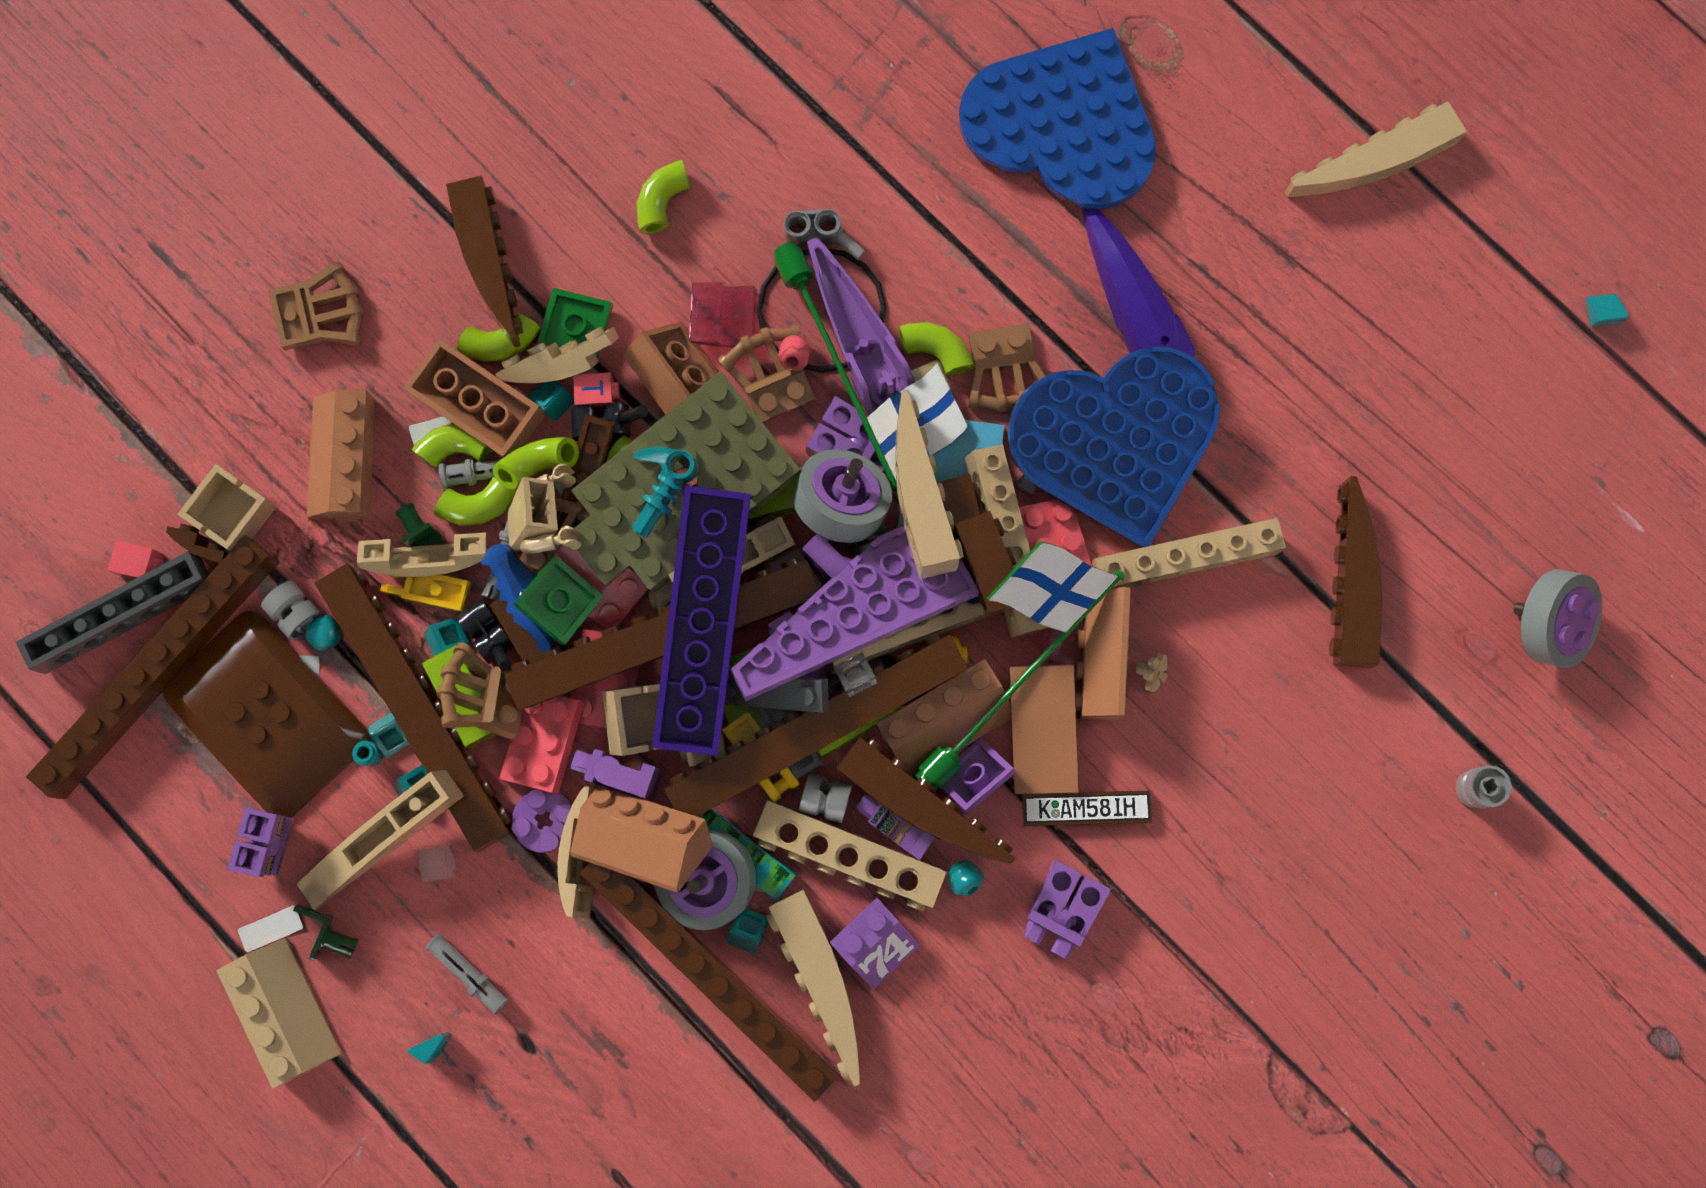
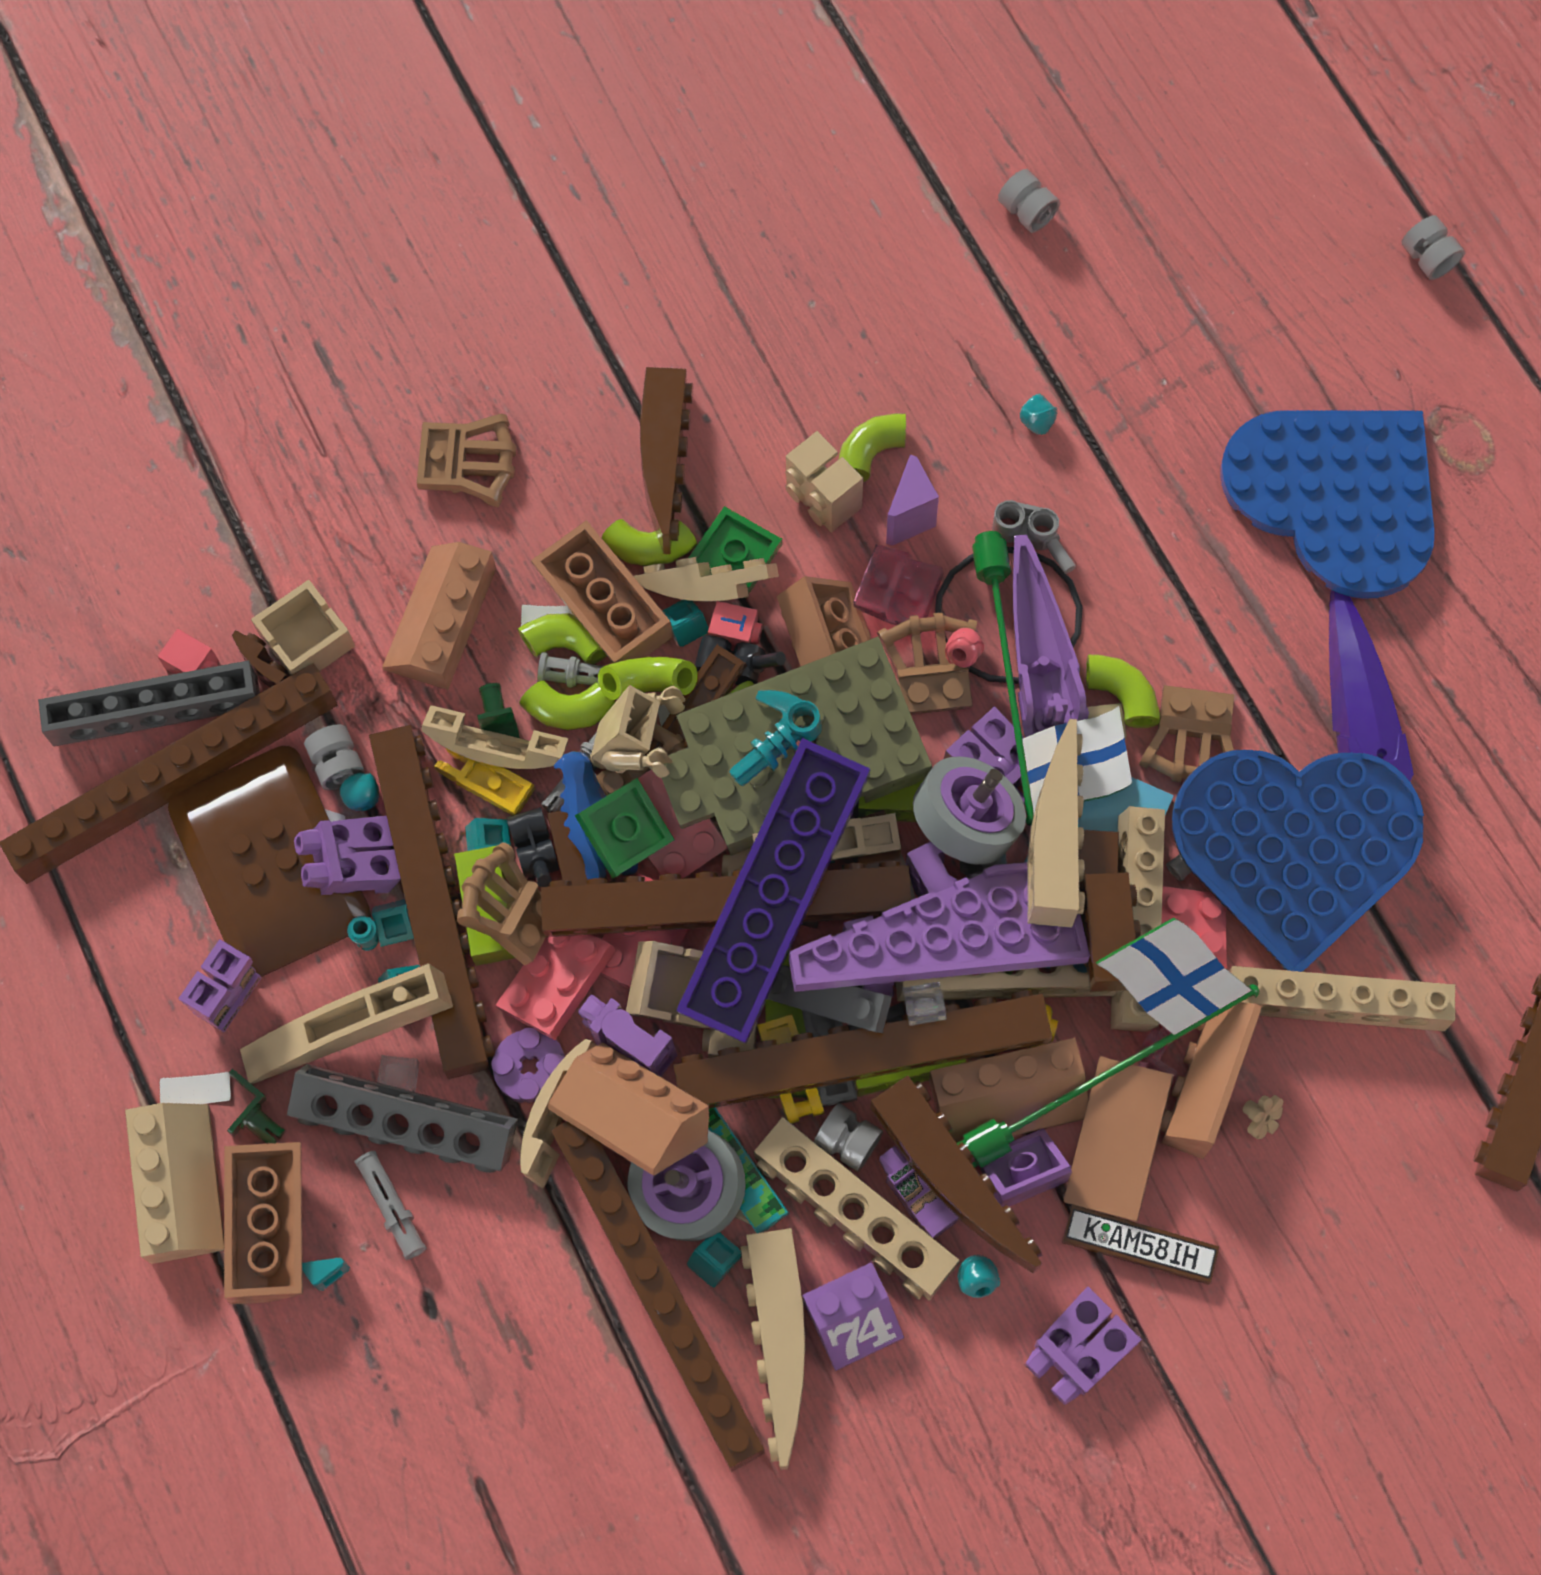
camera: 20 degrees right, 10 degrees down
(332, 693) = (349, 856): none -> medium lavender hips
(364, 1025) = (262, 1222): none -> nougat slope
(465, 889) = (493, 1130): none -> dark grey brick
(638, 248) = (831, 492): none -> tan piece
(713, 239) = (913, 505): none -> medium lavender slope
(794, 126) = (1038, 414): none -> teal piece

